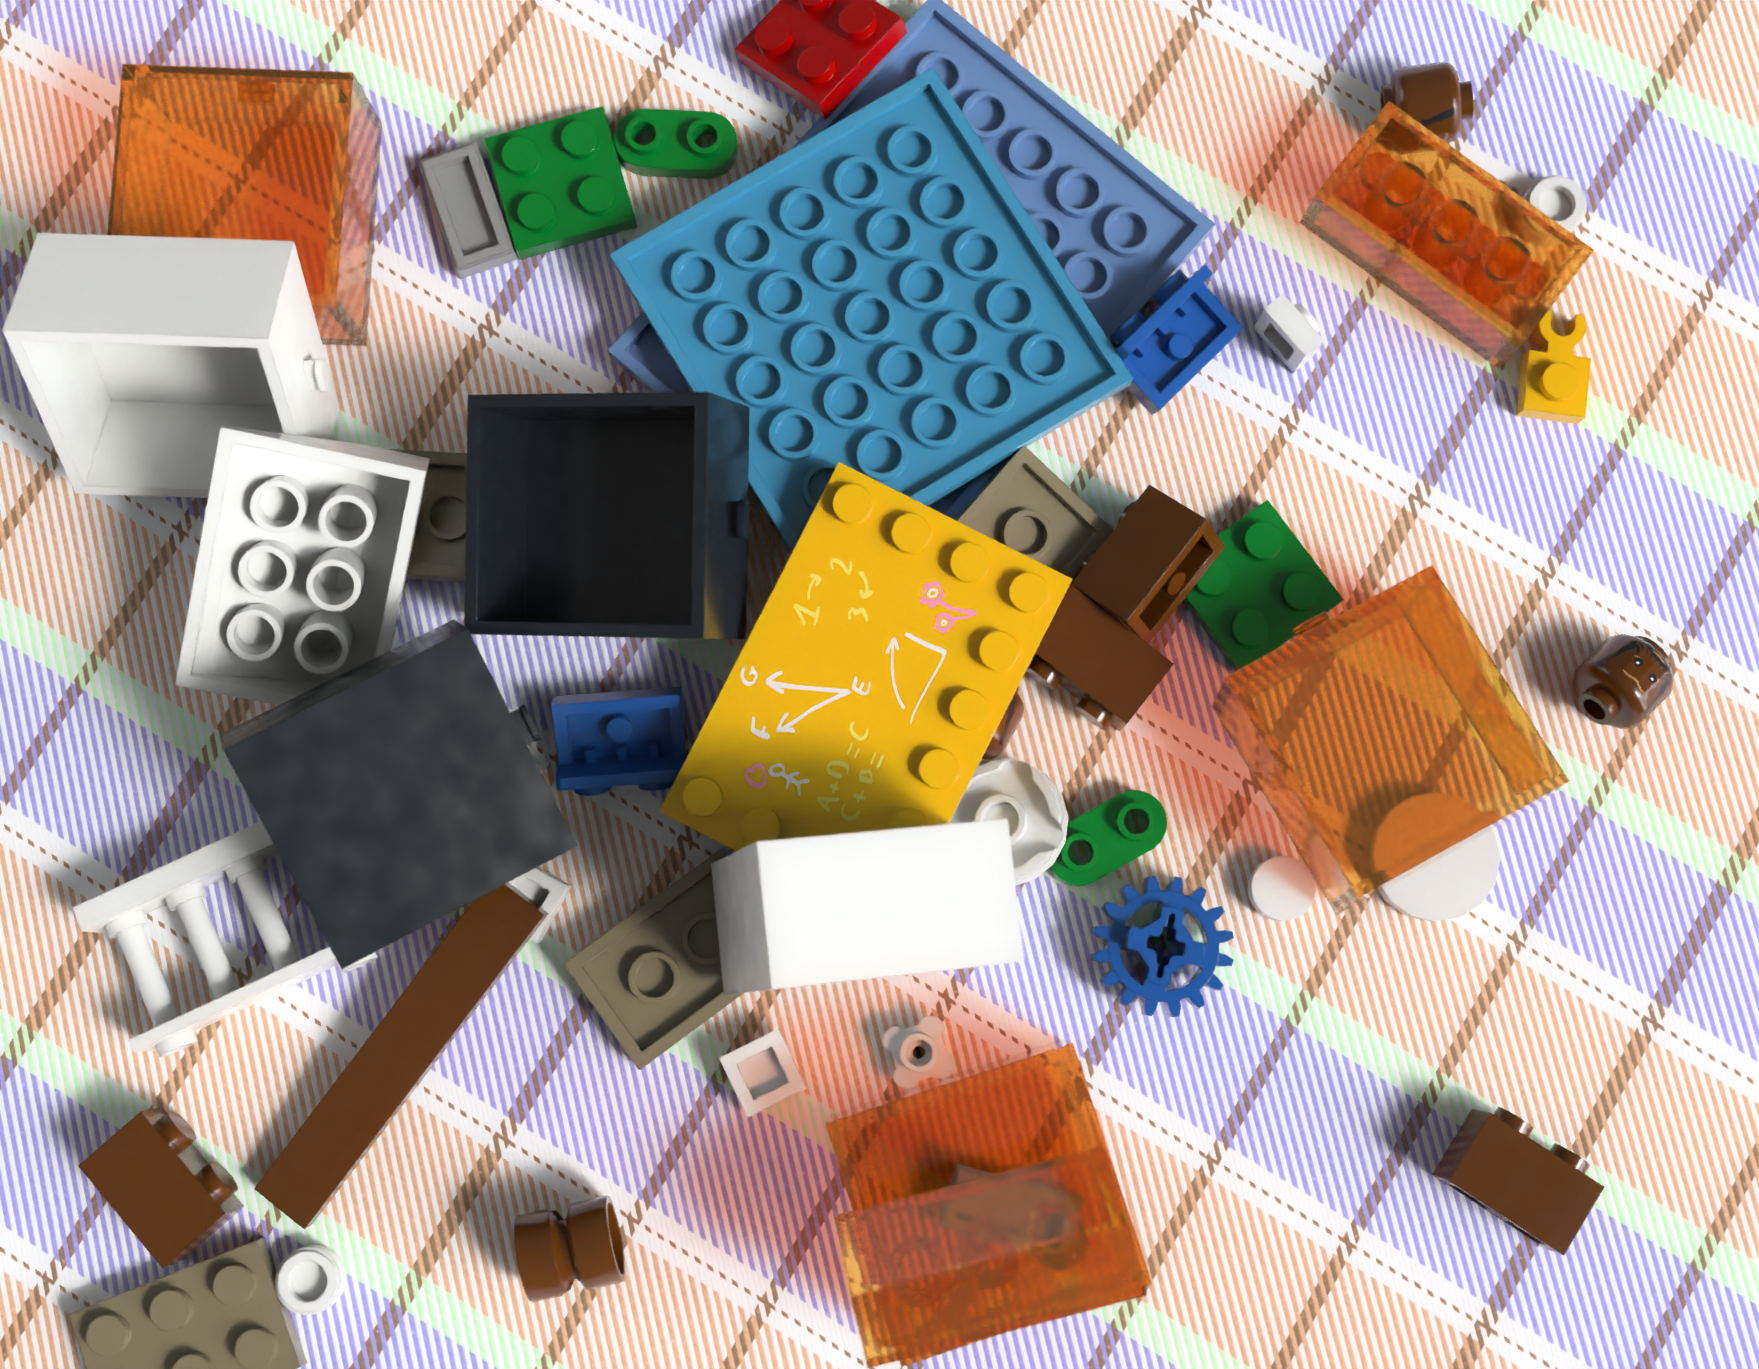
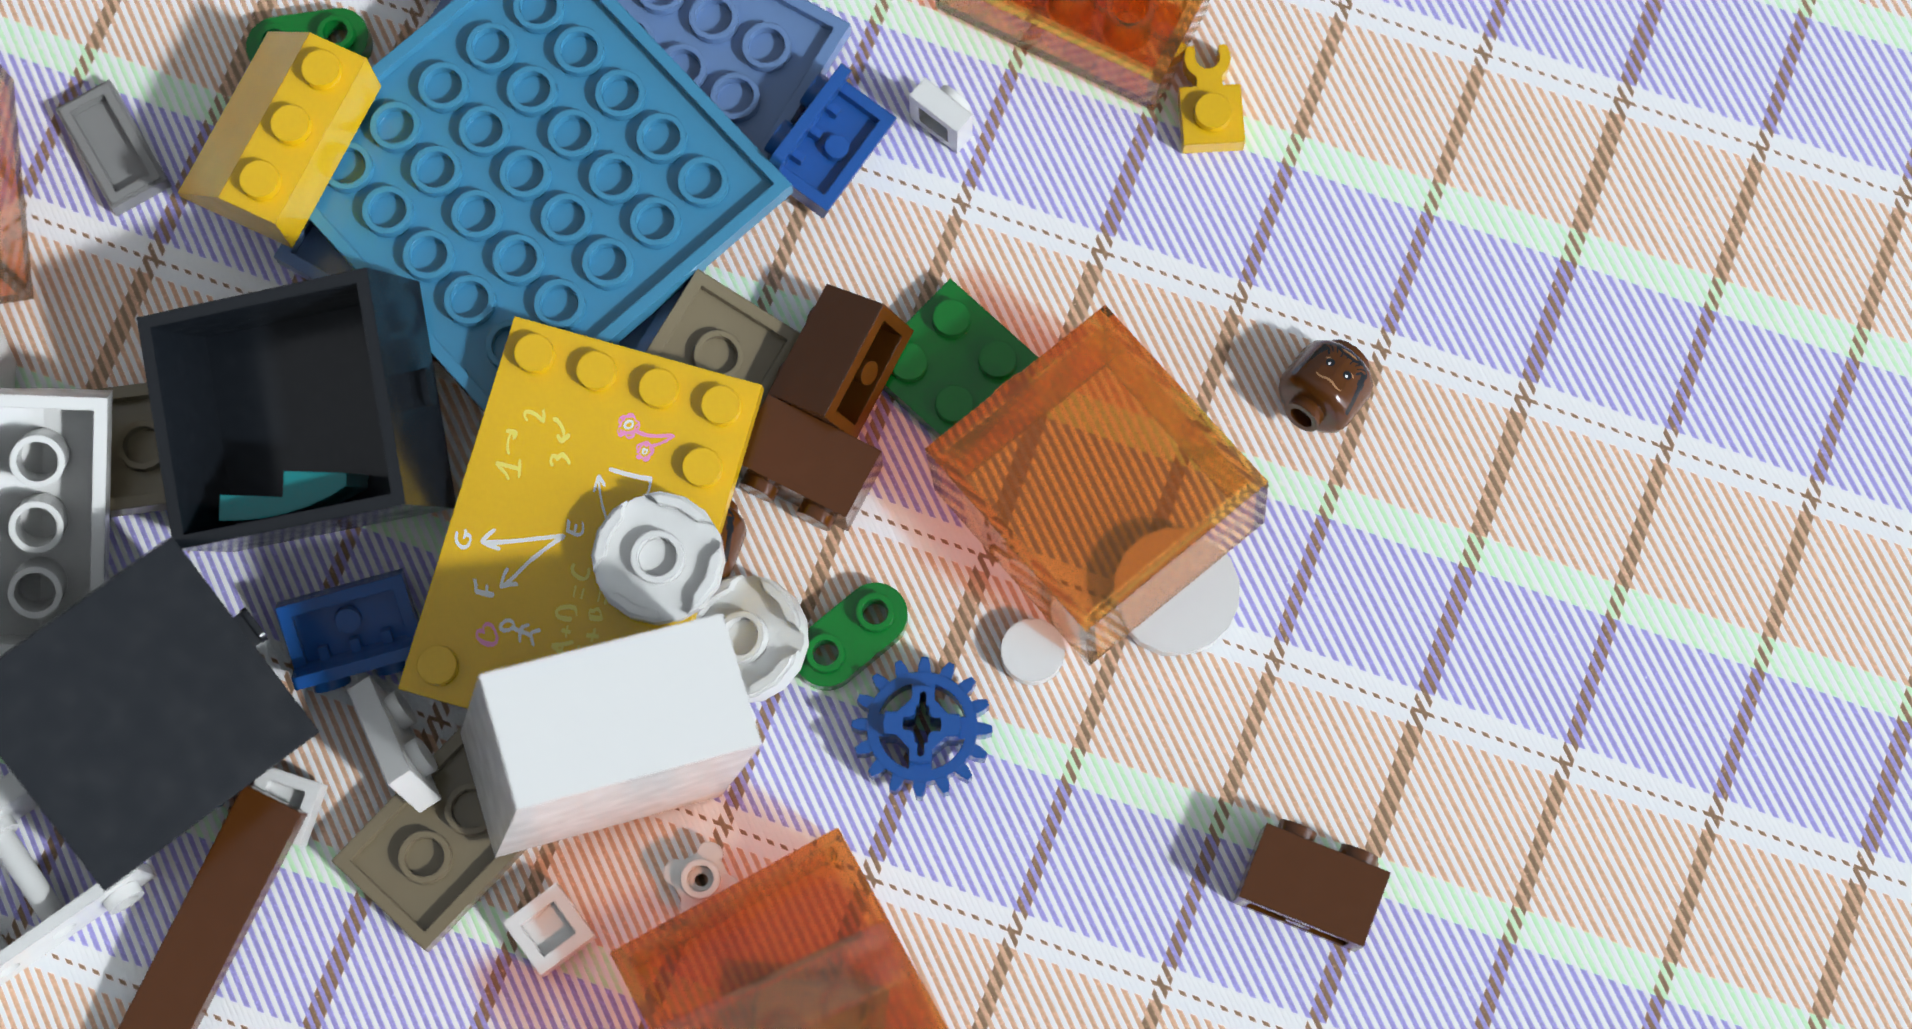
camera: 10 degrees left, 5 degrees down
(560, 183) = (184, 95): green plate -> none
(599, 597) = (300, 493): none -> teal slope
(639, 231) = (282, 134): none -> yellow slope
(650, 879) = (401, 756): none -> white plate
(940, 735) = (658, 558): none -> white tile

